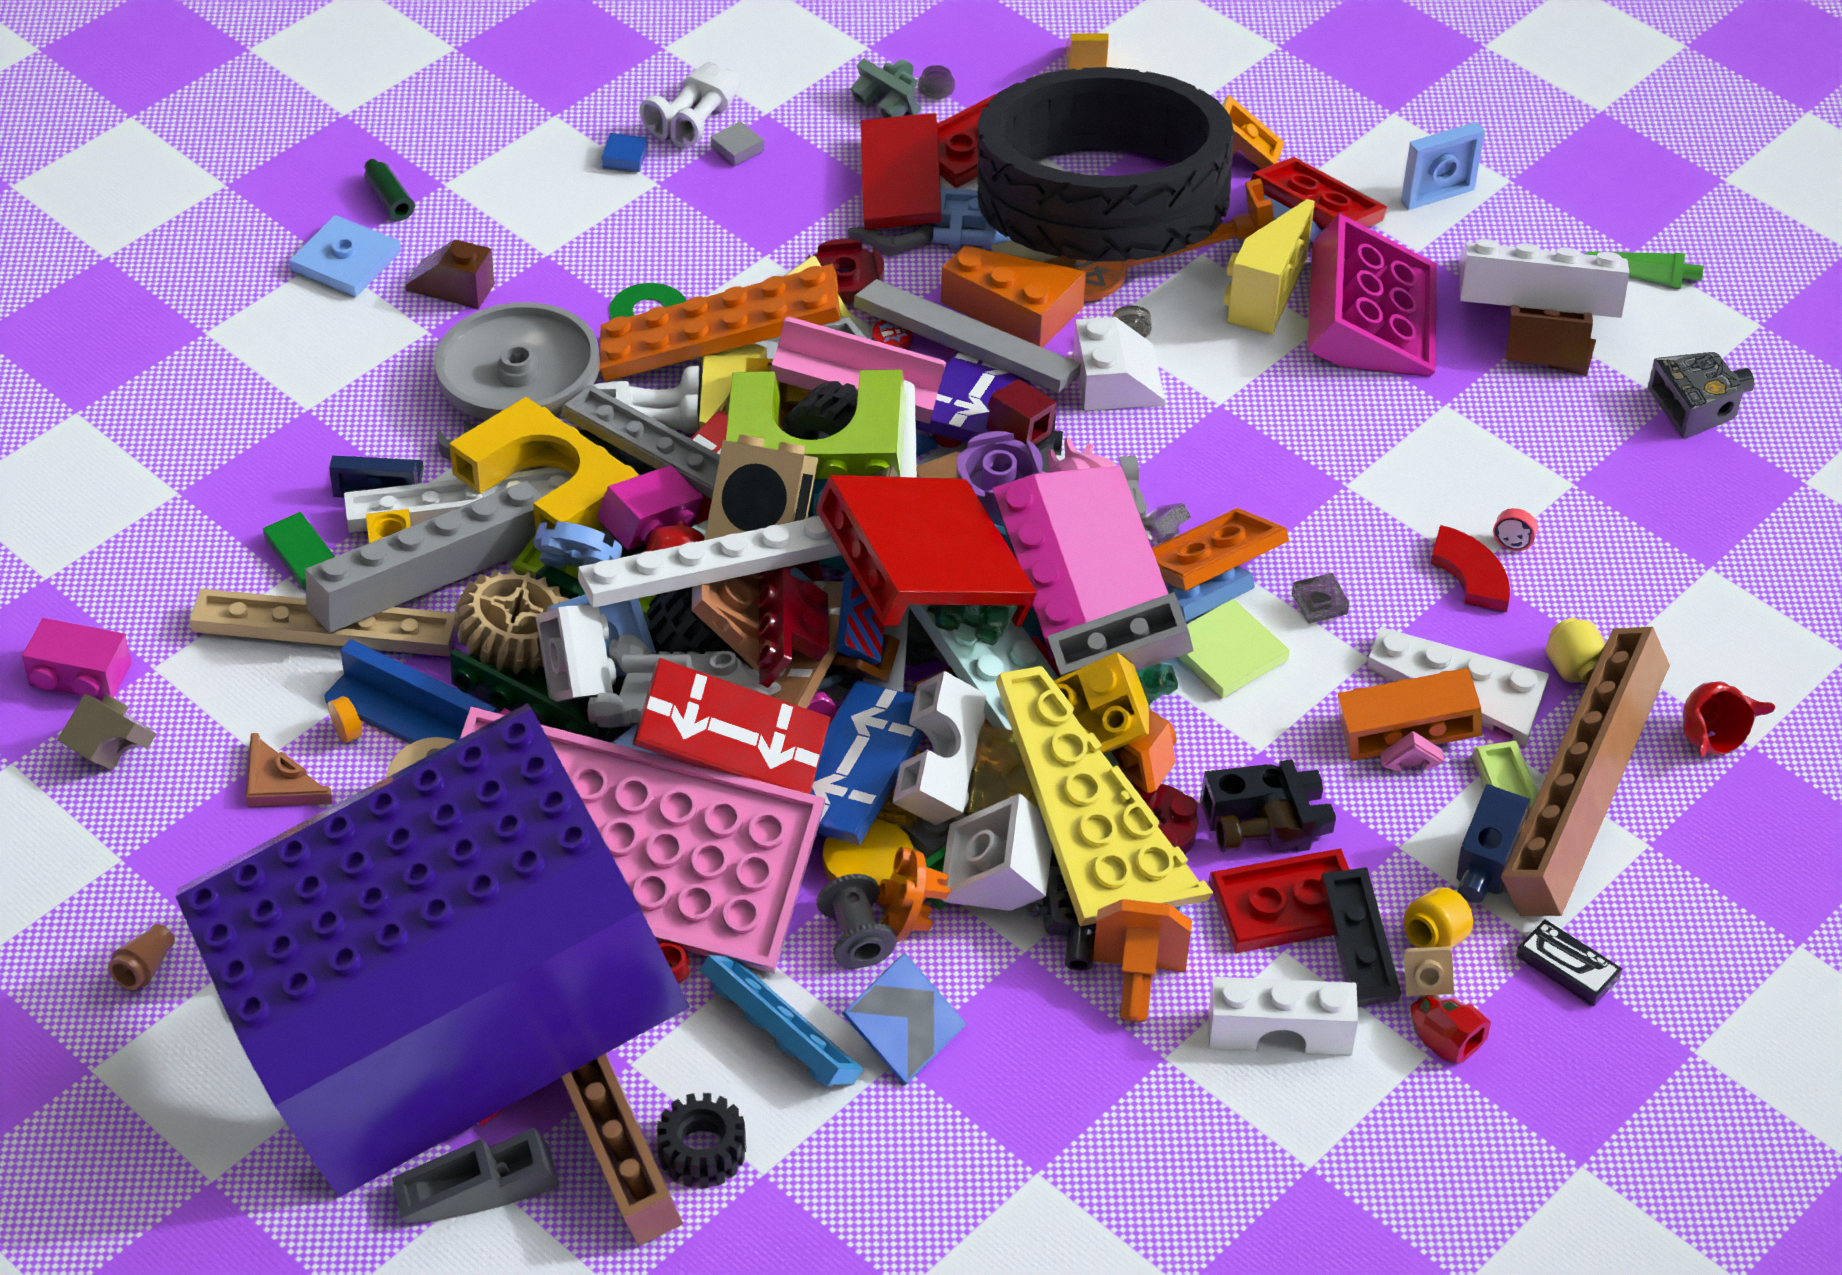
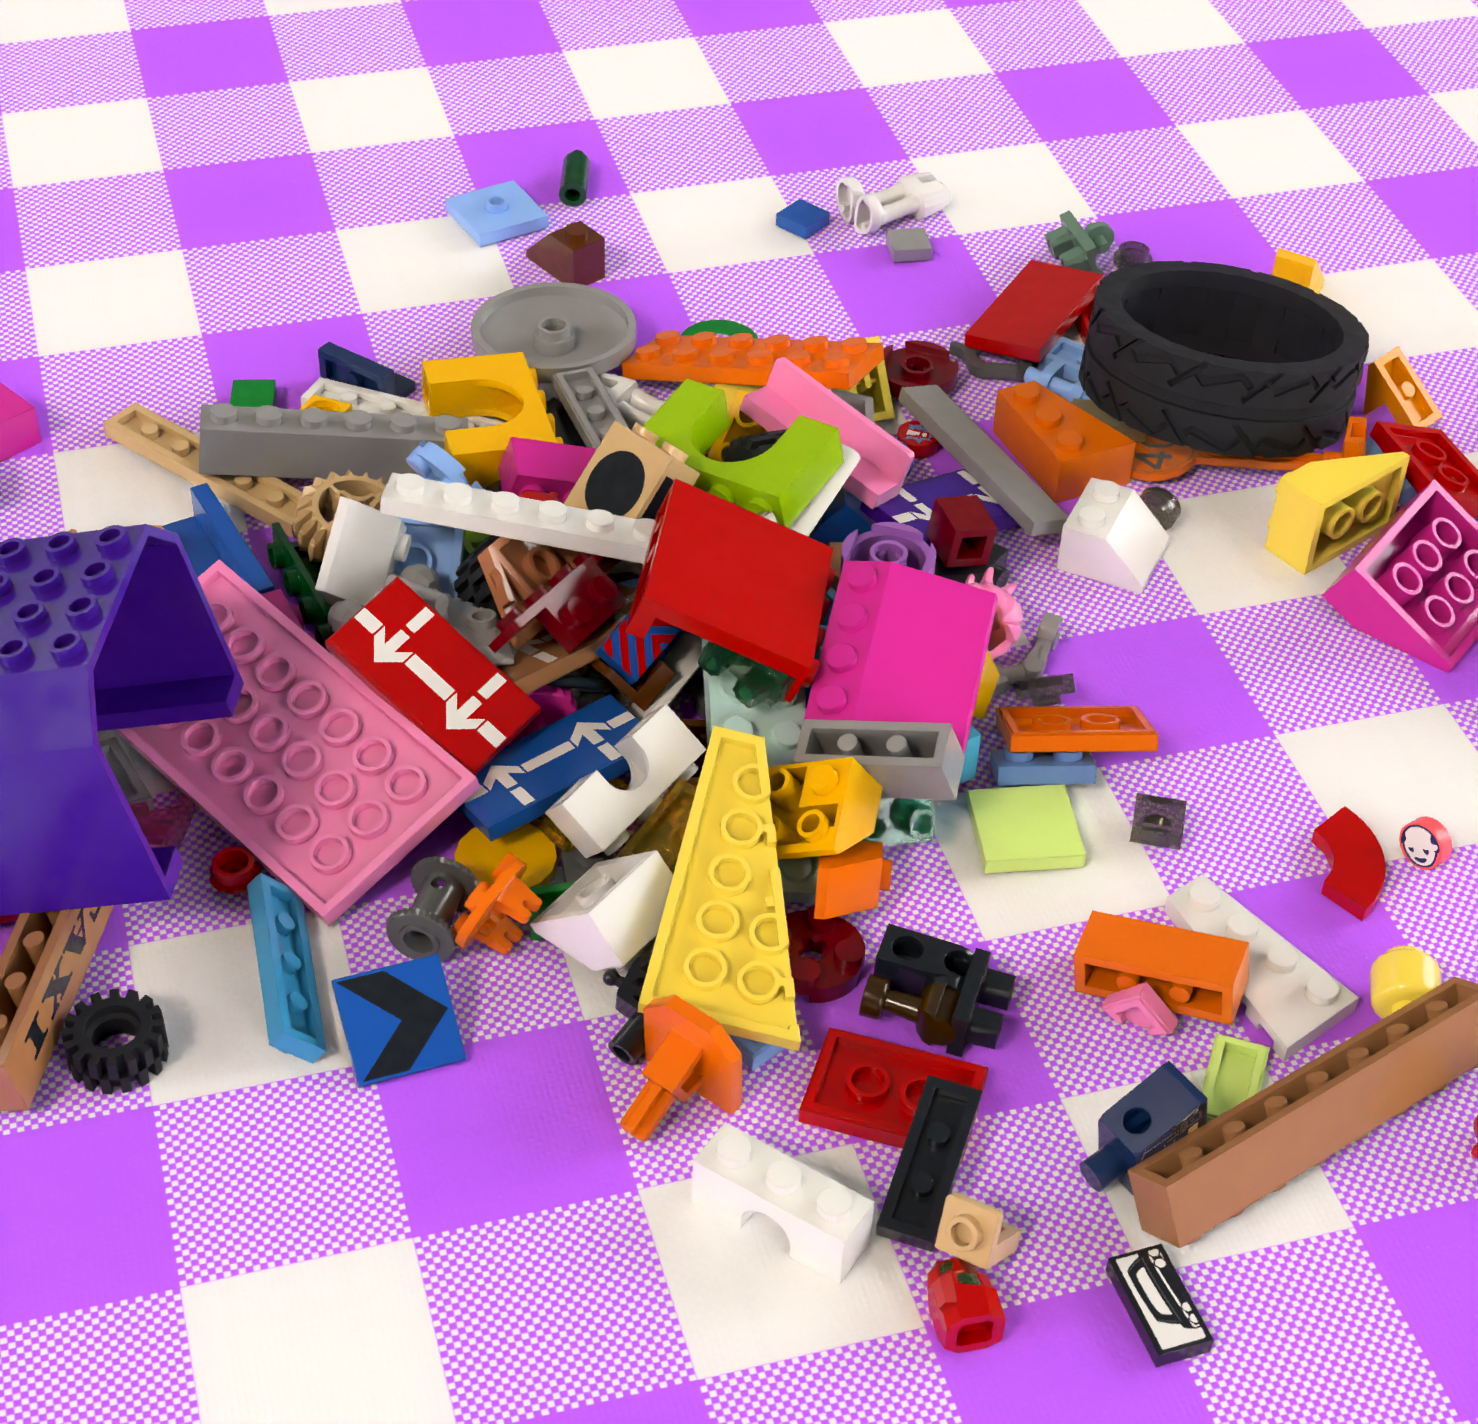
camera: 30 degrees right, 5 degrees down
(1438, 919) = (1033, 1187): yellow head -> none

